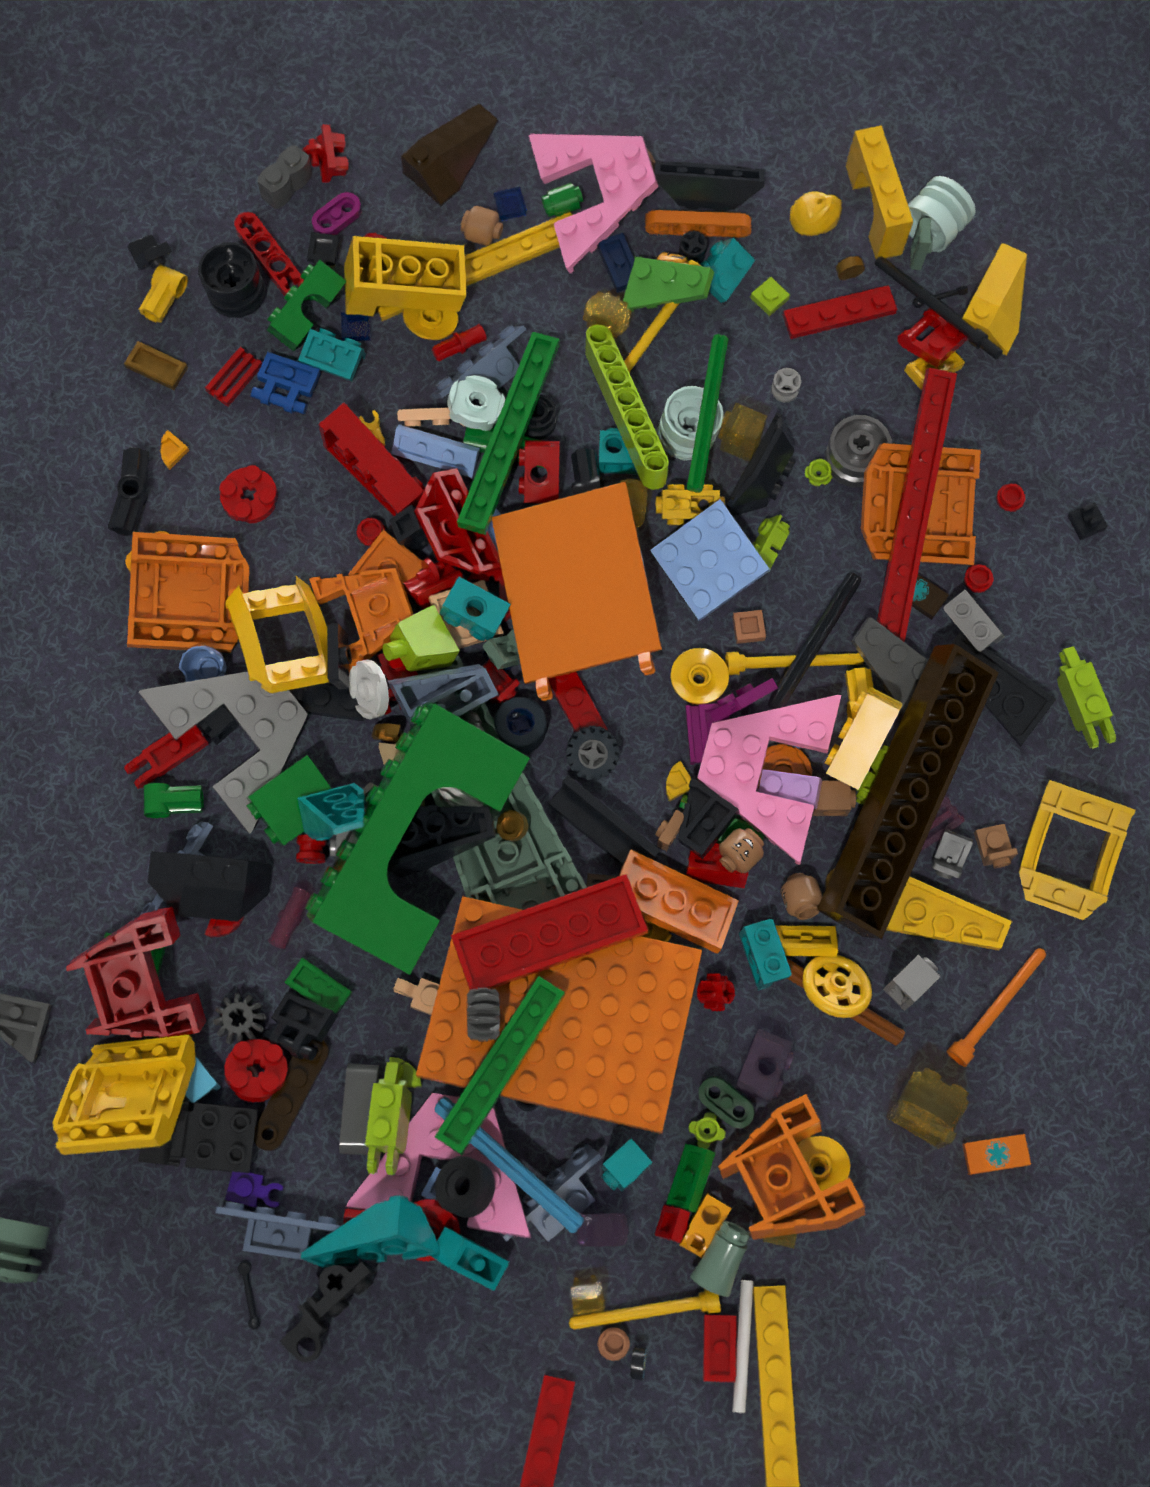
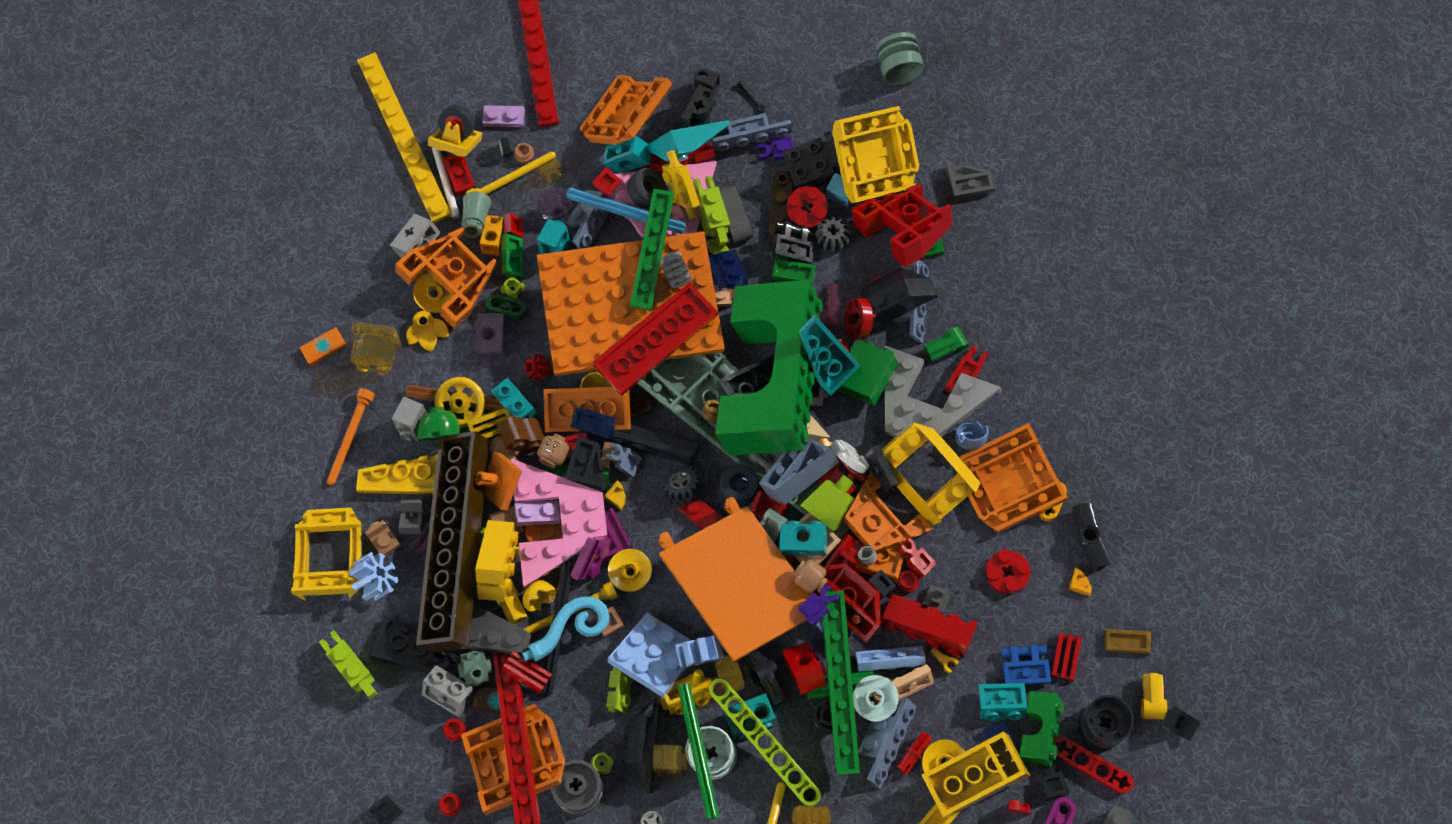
camera: 165 degrees right, 5 degrees down
(256, 883) = (862, 329): none -> red piece
(345, 547) = (918, 560): none -> plate
(347, 498) = (937, 598): none -> dark grey tile
(404, 569) = (867, 555): none -> light grey hinge
(404, 1026) = (727, 270): none -> clear blue plate
(417, 1165) = (680, 182): none -> yellow plate
(444, 1334) = (624, 109): none -> orange wedge
(489, 553) = (810, 576): none -> medium nougat head
(499, 512) = (815, 607): none -> dark purple plate
(518, 1214) = (607, 182): none -> red plate
(620, 1422) = (503, 116): none -> lavender plate
(650, 815) = (626, 459): none -> sand blue plate
(660, 523) = (699, 651): none -> light blue gear
(673, 871) = (593, 422): none -> clear blue plate
(706, 1406) = (455, 131): none -> plate
(772, 899) = (521, 434): none -> reddish brown brick
(804, 1262) = (414, 234): none -> light grey brick
(816, 689) = (538, 593): none -> yellow hair
(822, 843) = (499, 480): none -> orange tile
(837, 615) = (546, 645): none -> medium azure plant
(847, 1111) = (427, 333): none -> yellow plate
(856, 578) = (527, 669): none -> red tile
(878, 955) = (437, 424): none -> green cylinder
(932, 628) = (474, 668): none -> sand green brick
(1024, 789) = (373, 576): none -> light blue gear

